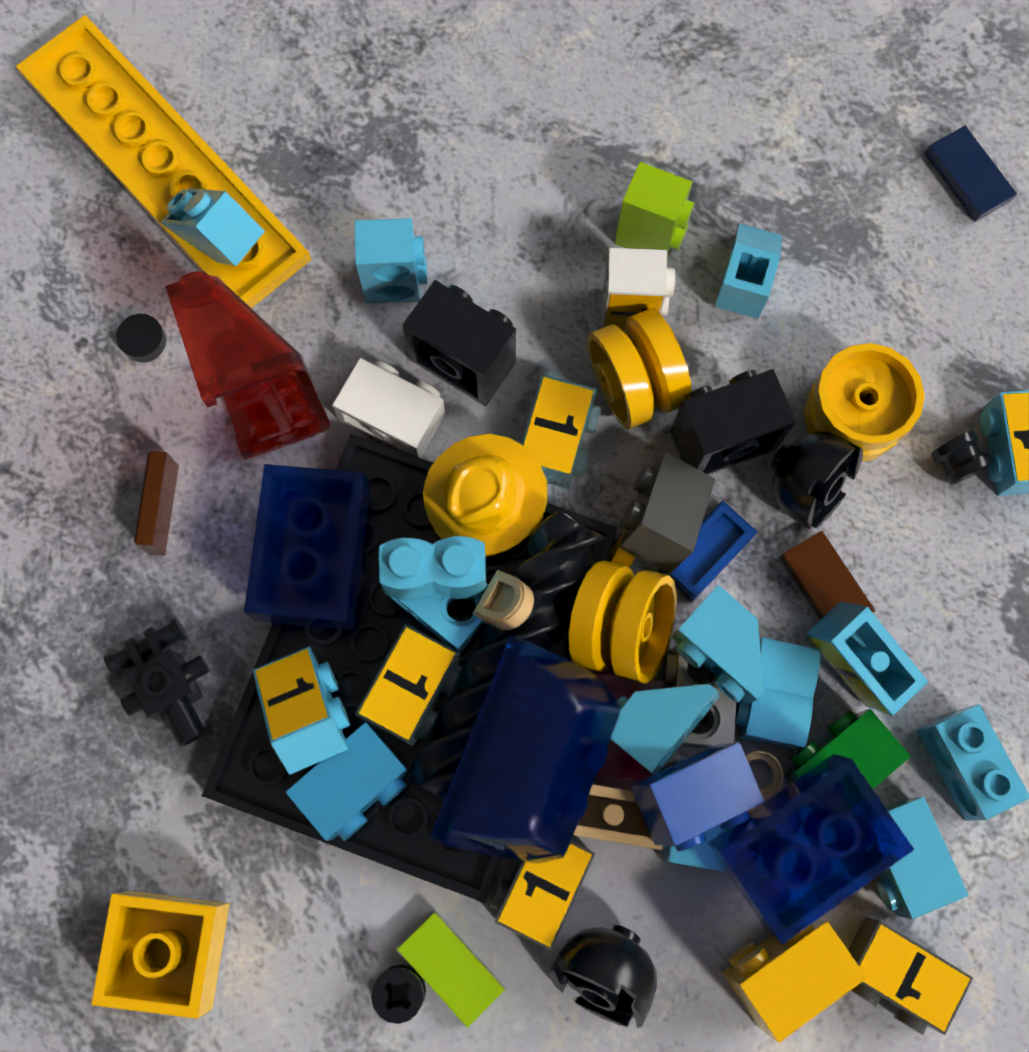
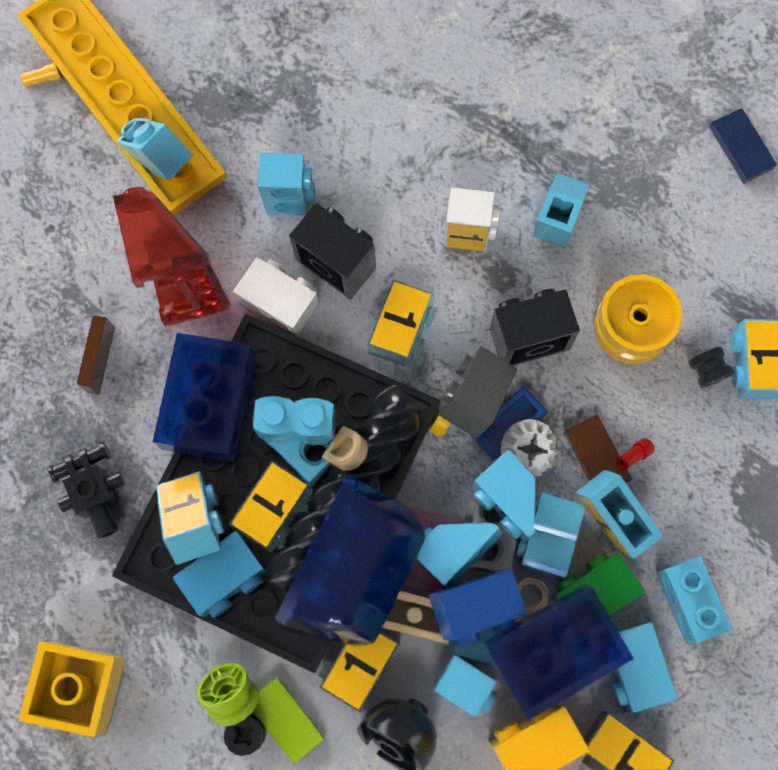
camera: 10 degrees right, 0 degrees up
(63, 140) = (47, 73): none -> yellow piece
(141, 338) = (94, 228): black tile -> none
(372, 942) = (227, 694): none -> lime wheel
(486, 492) = (342, 366): yellow hat -> none
(623, 621) = (435, 471): yellow wheel -> none
(639, 367) = (467, 279): yellow wheel -> none
(654, 210) = (490, 160): lime brick -> none
(690, 904) = (466, 687): none -> medium azure brick
(728, 563) = (521, 434): none -> white gear
(812, 475) = (592, 373): black cylinder -> none
(880, 574) = (639, 451): none -> red piece

